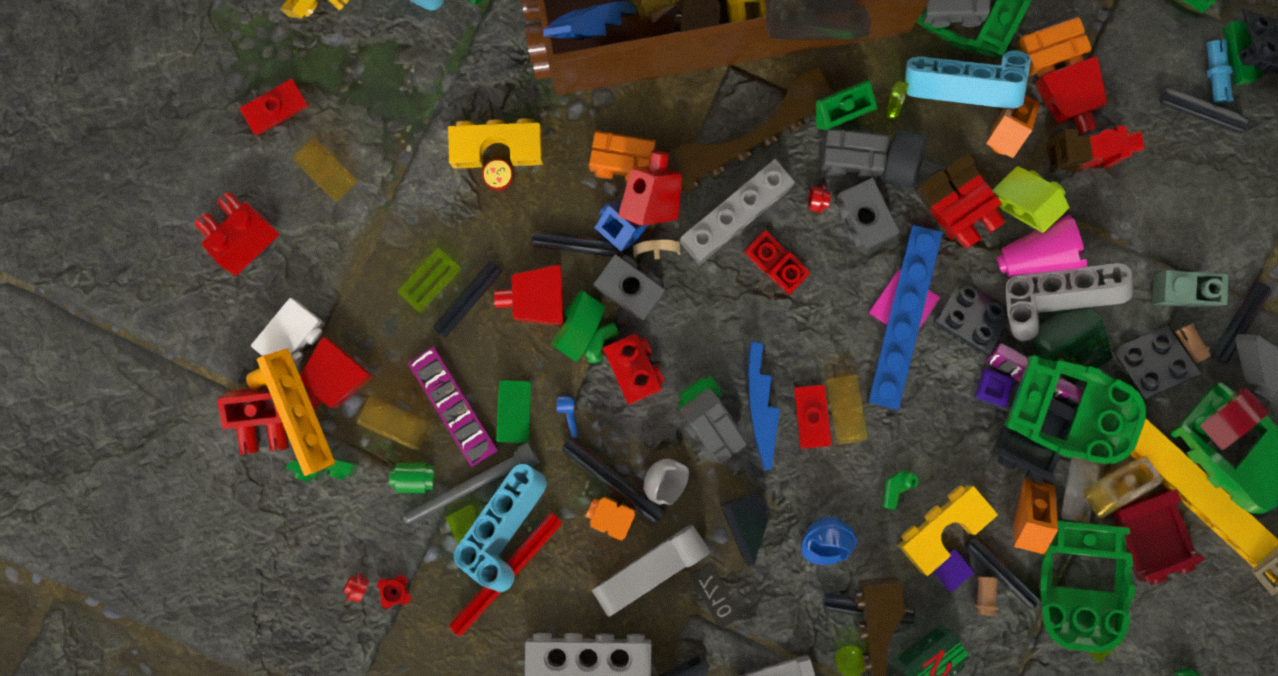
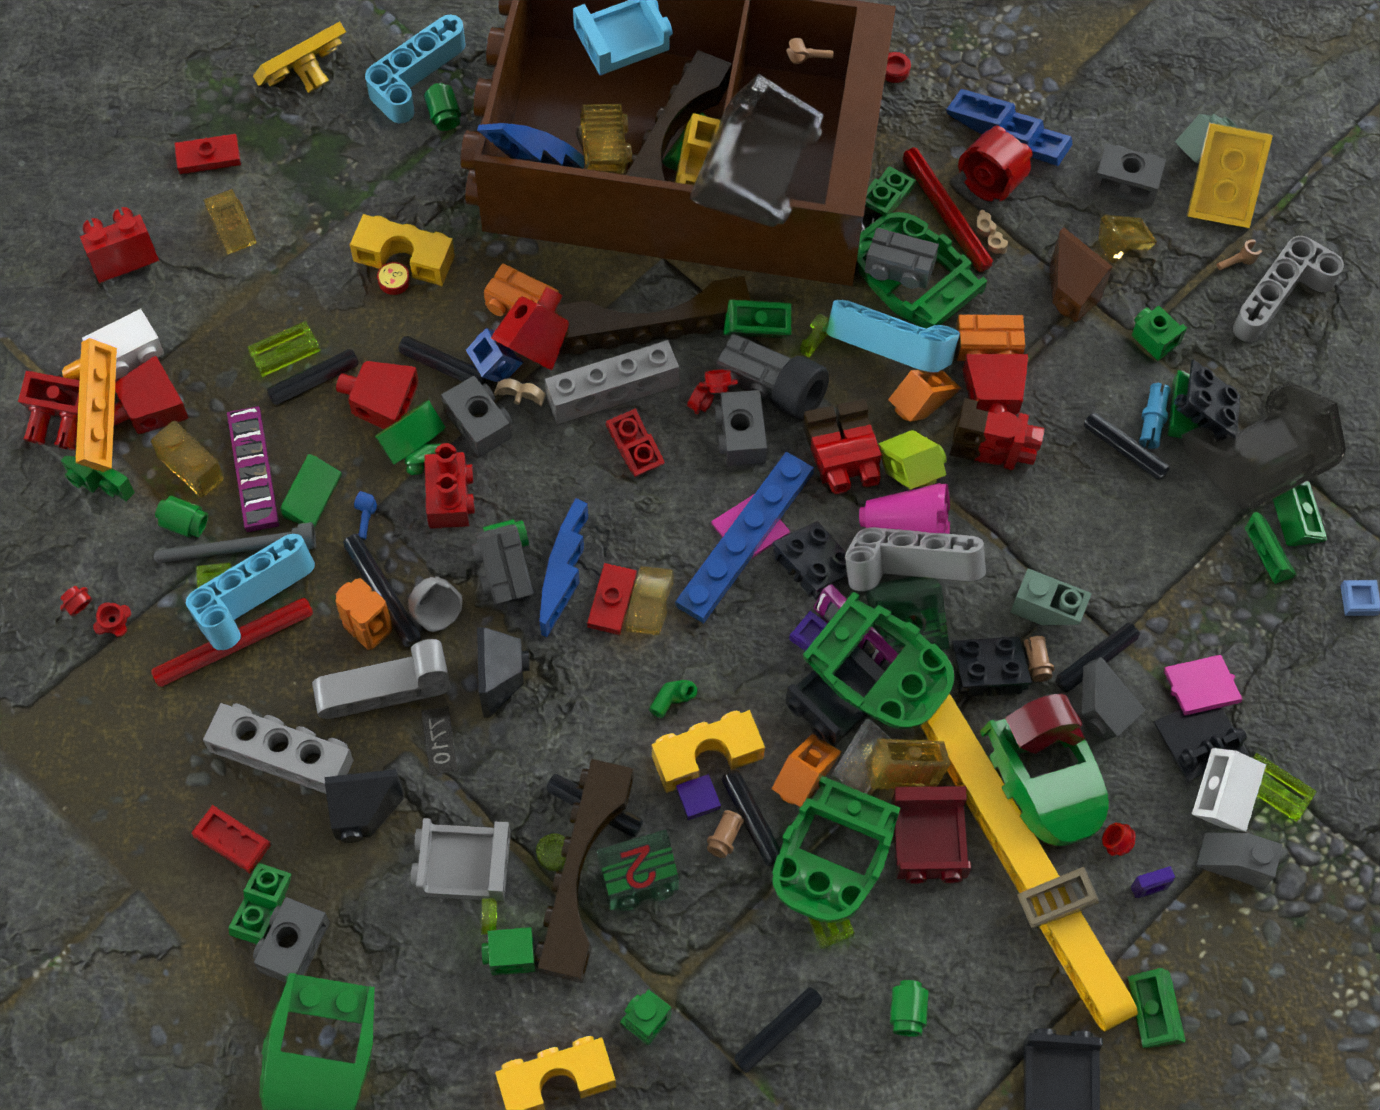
camera: 15 degrees right, 20 degrees down
(828, 541) = (576, 719): blue piece -> none
(832, 181) = (718, 380): none -> red plate

